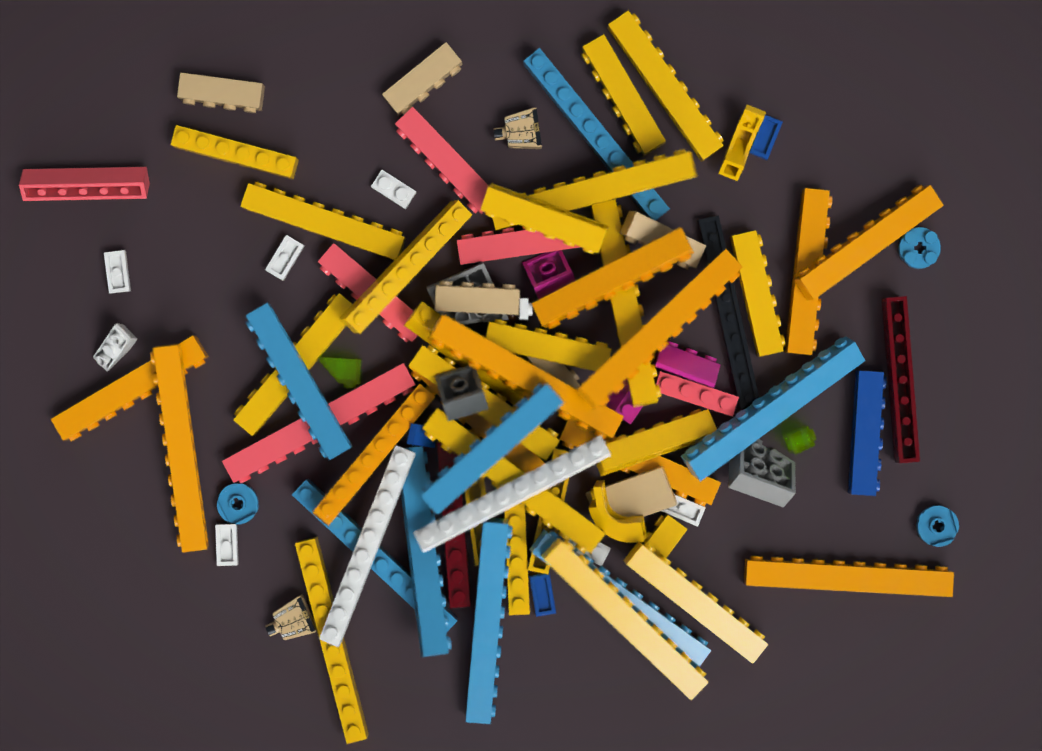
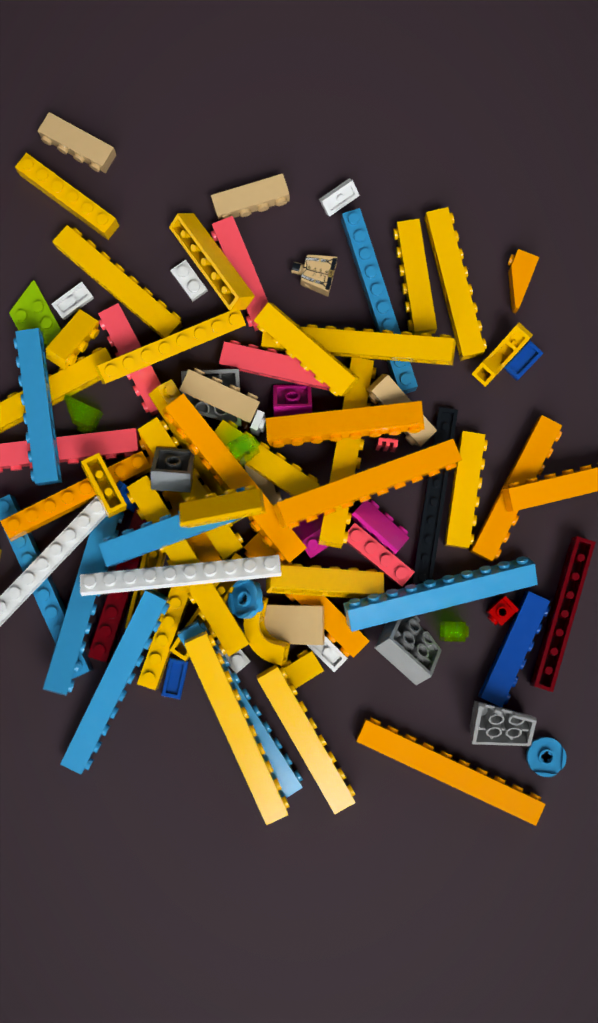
camera: 20 degrees right, 5 degrees down
(253, 289) = (33, 312): none -> lime wing
(304, 299) = (72, 339): none -> yellow brick
(400, 435) = (103, 485): none -> yellow brick
(411, 164) = (211, 261): none -> yellow brick
(512, 42) = (339, 197): none -> white plate
(524, 344) = (244, 448): none -> clear neon green slope
(530, 414) = (222, 507): none -> yellow slope
(593, 488) = (254, 600): none -> dark azure plate
(661, 280) = (393, 446): none -> coral tile
(728, 49) = (520, 273): none -> light orange slope
(836, 393) = (493, 612): none -> red brick
(881, 514) = (500, 726): none -> light grey wedge

